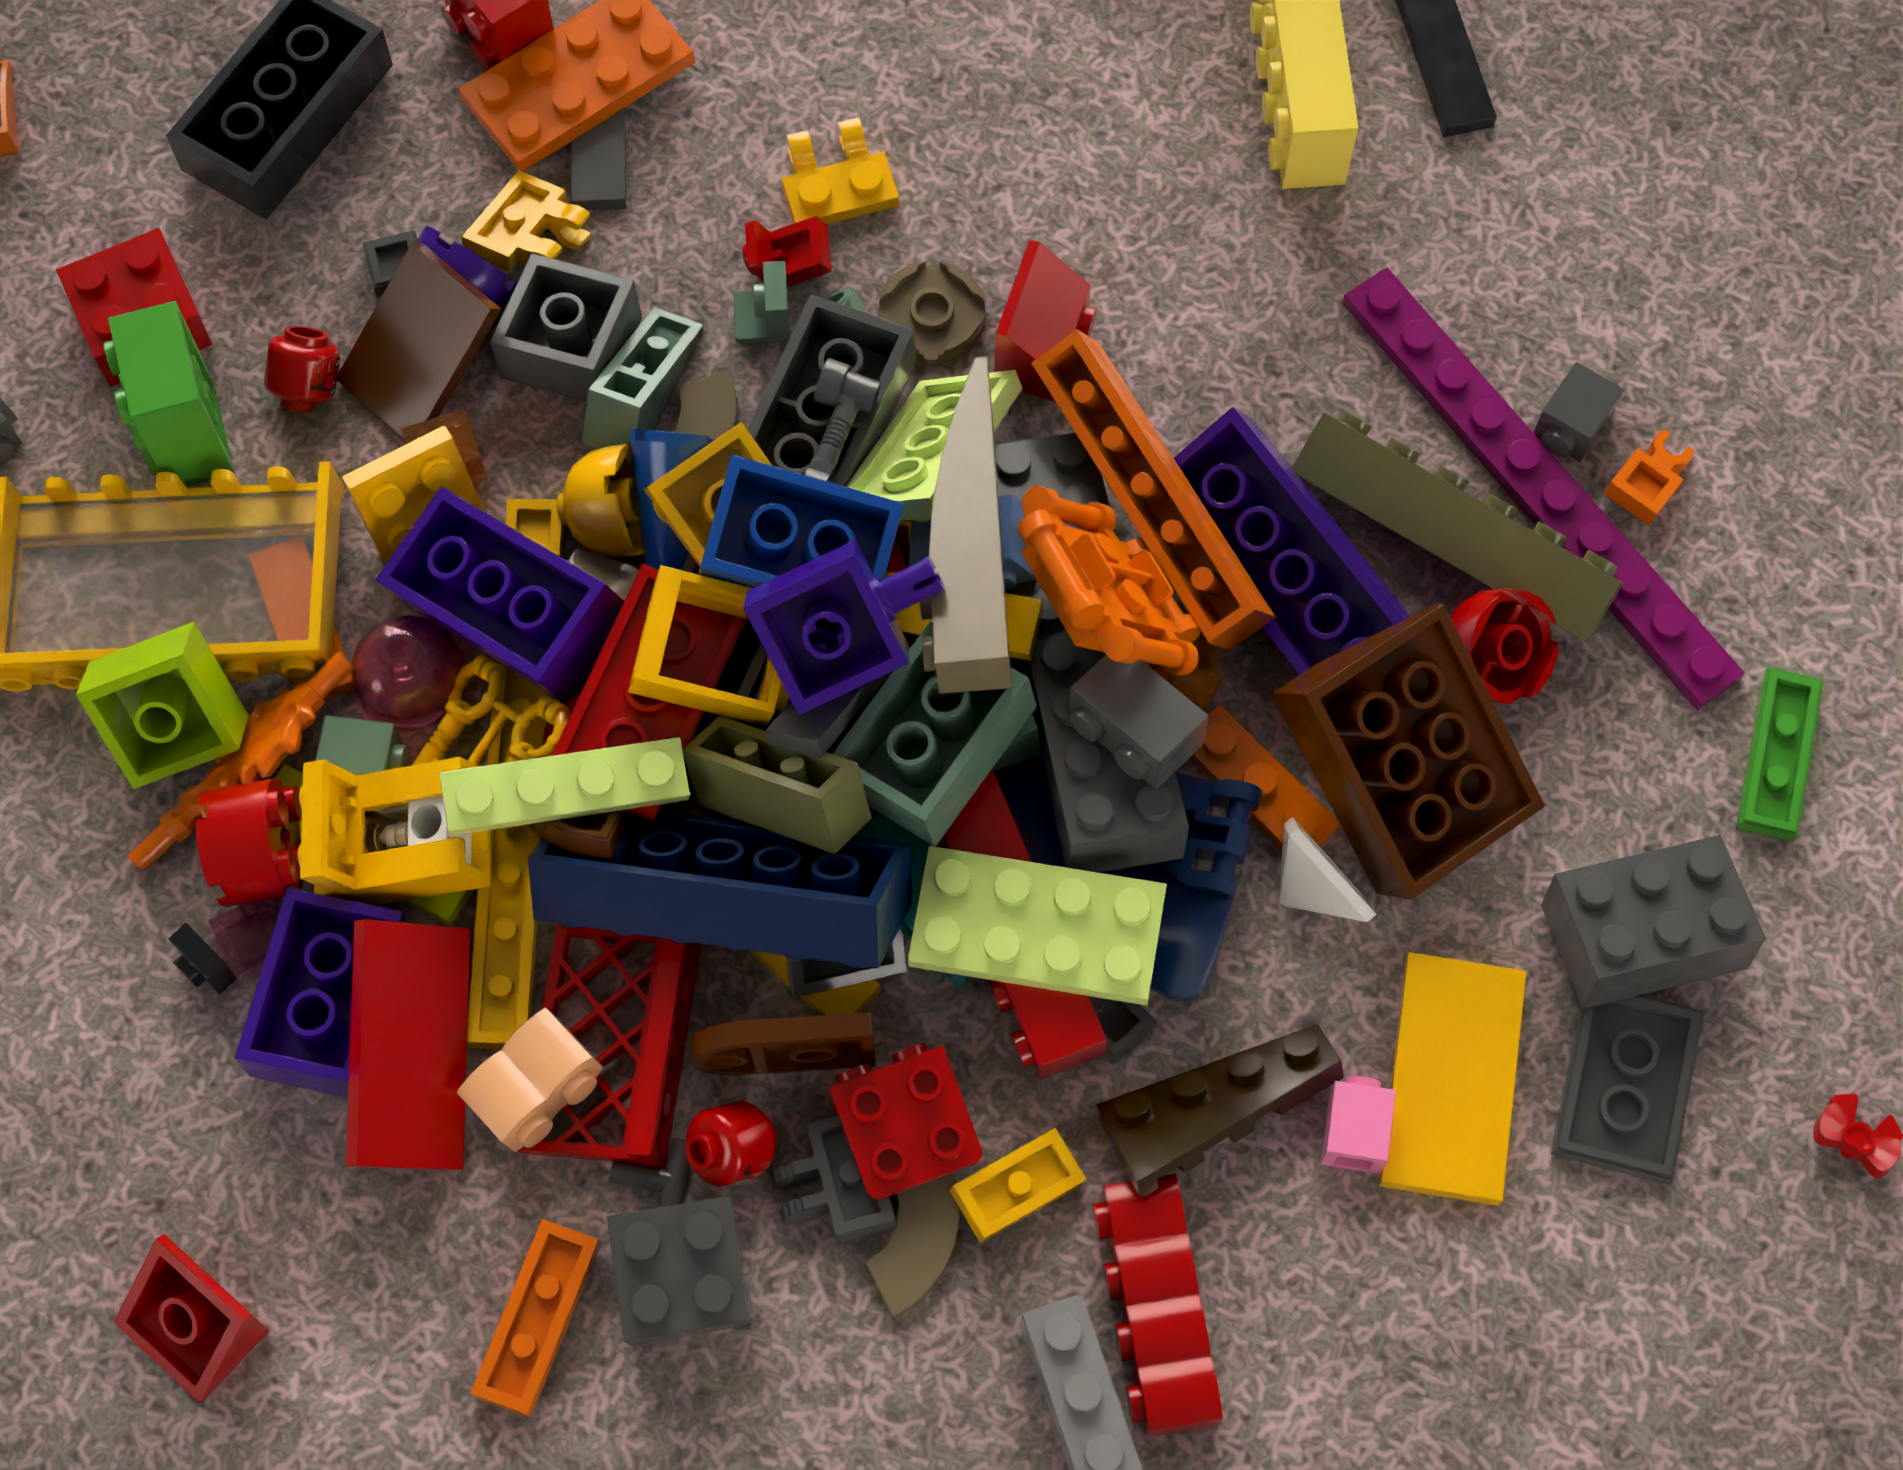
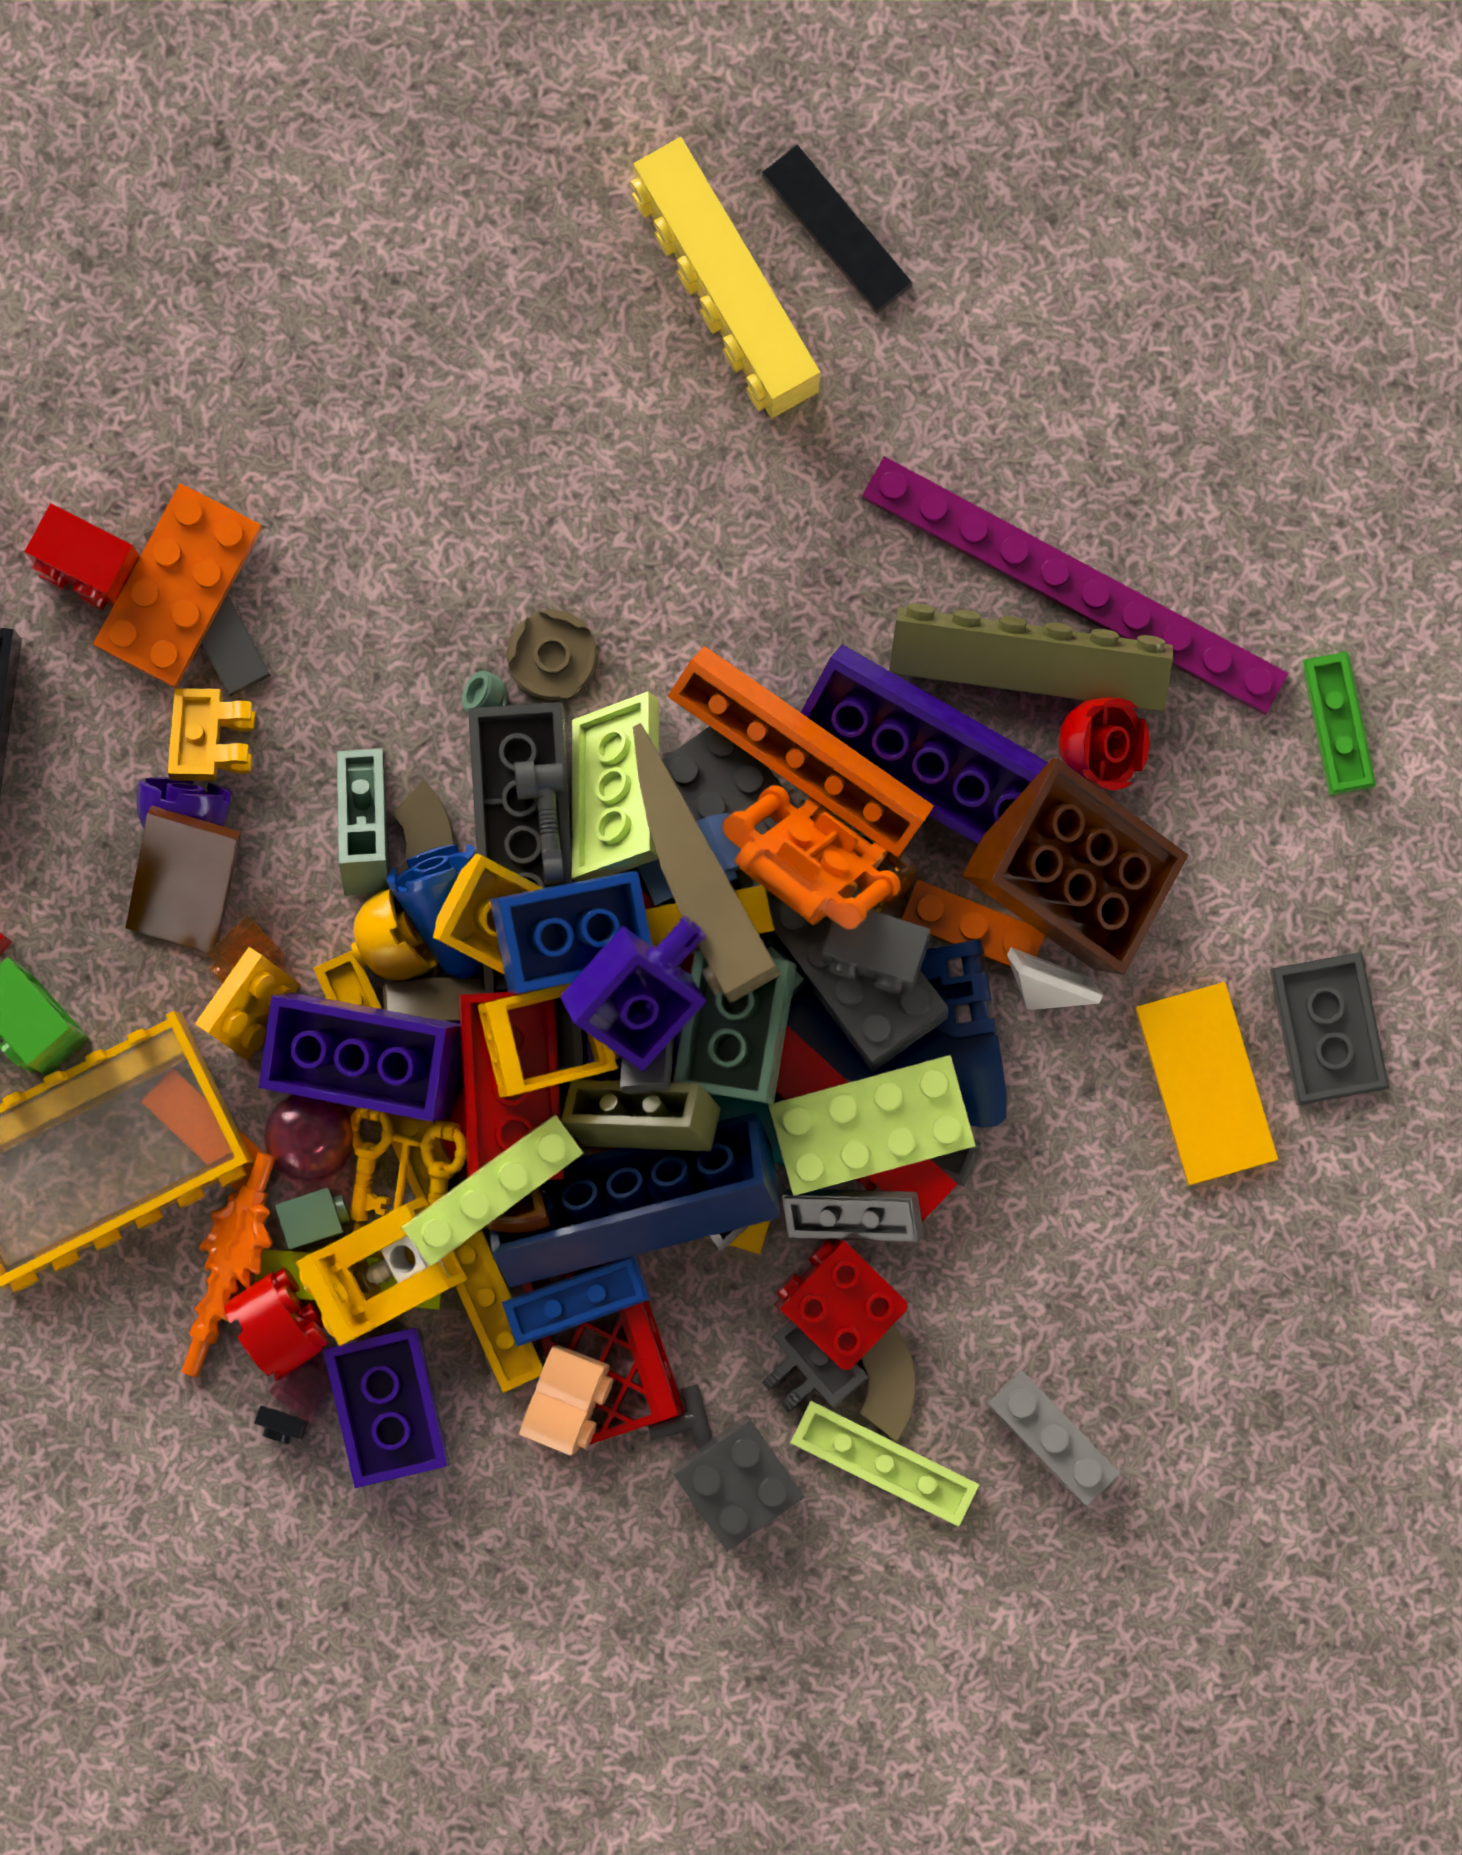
camera: 25 degrees left, 15 degrees up
(163, 705) = (156, 1257): lime brick -> none
(187, 1320) = (413, 1677): red slope -> none
(301, 368) = (100, 936): red head -> none
(385, 256) = (115, 808): dark grey tile -> none
(408, 1046) = (469, 1419): red tile -> none
(536, 1318) = (652, 1559): orange plate -> none
(564, 326) = (286, 810): dark grey brick -> none
(601, 972) = (576, 1300): none -> blue tile
(730, 1143) = (726, 1377): red head -> none
(764, 312) = (425, 719): sand green bracket -> none
(785, 1045) = (731, 1292): reddish brown tile -> none
(801, 246) = (419, 661): red bracket -> none
(841, 189) = (430, 584): yellow plate -> none
(866, 1337) = (884, 1463): none -> yellowish green plate
(968, 1024) = (853, 1215): none -> dark grey tile
(1017, 1185) = (939, 1309): yellow plate -> none
(1041, 311) = (649, 637): red slope -> none
(1160, 1307) = (1076, 1346): red brick -> none
(1191, 1112) = (1035, 1202): dark brown wing -> none
(1358, 1125) = (1155, 1152): bright pink brick -> none
(1577, 412) = (1080, 517): dark grey brick -> none
(1648, 479) = (1155, 549): orange plate -> none
(1652, 921) = (1299, 906): dark grey brick -> none

